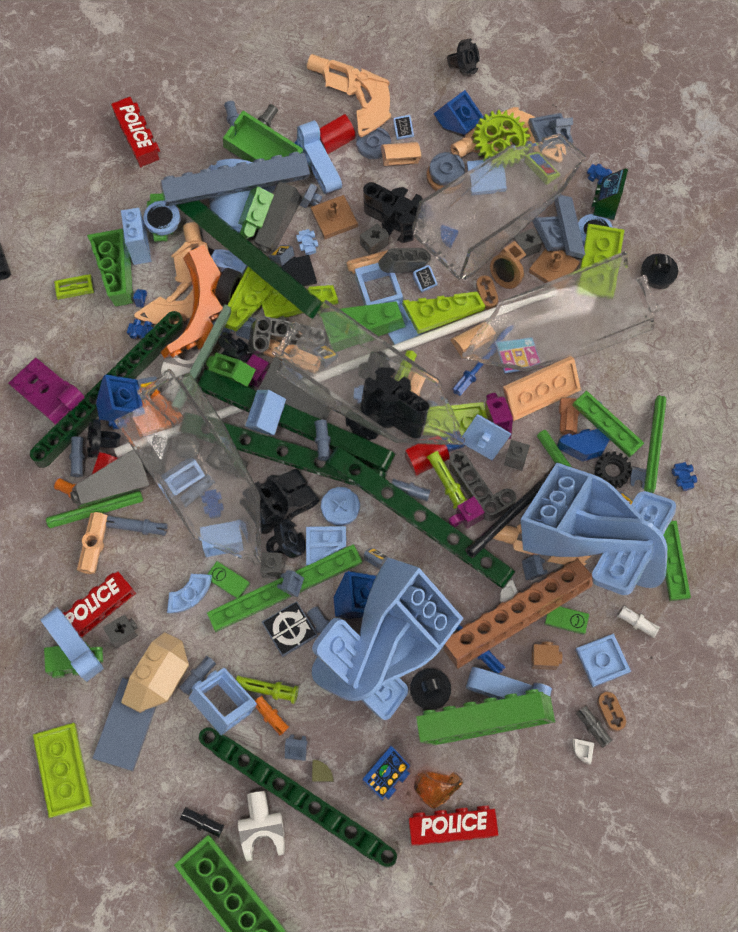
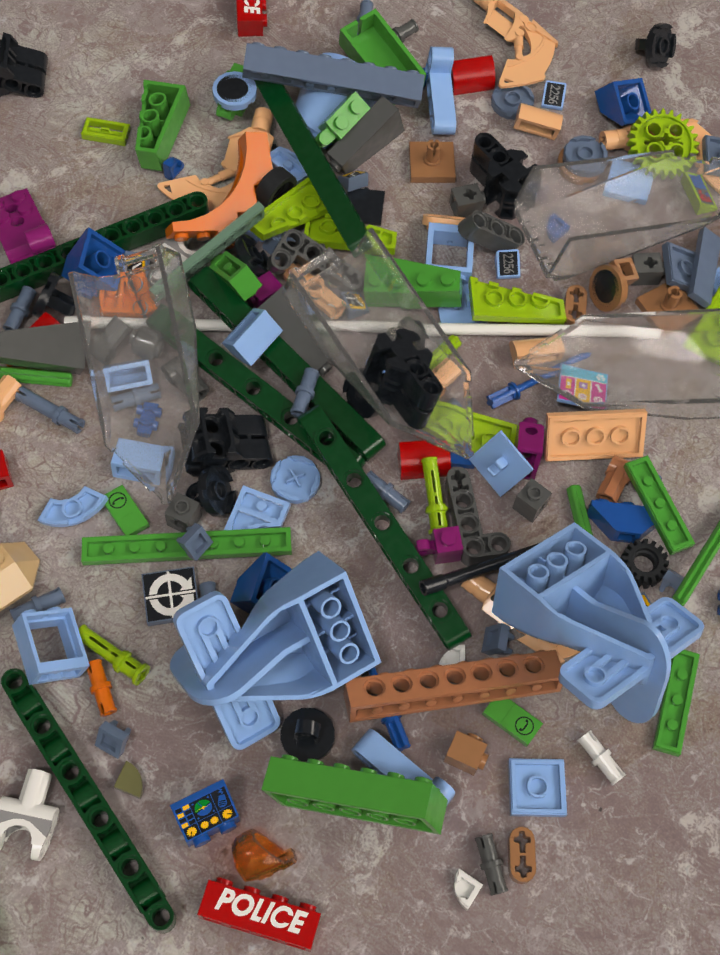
camera: 15 degrees right, 5 degrees down
(136, 236) = (196, 99): light blue window -> none
(137, 330) = (152, 199): blue piece -> none
(308, 244) = (389, 179): light blue piece -> none
(310, 197) = (414, 130): sand blue tile -> none
(375, 557) = (305, 548): sand blue slope -> none

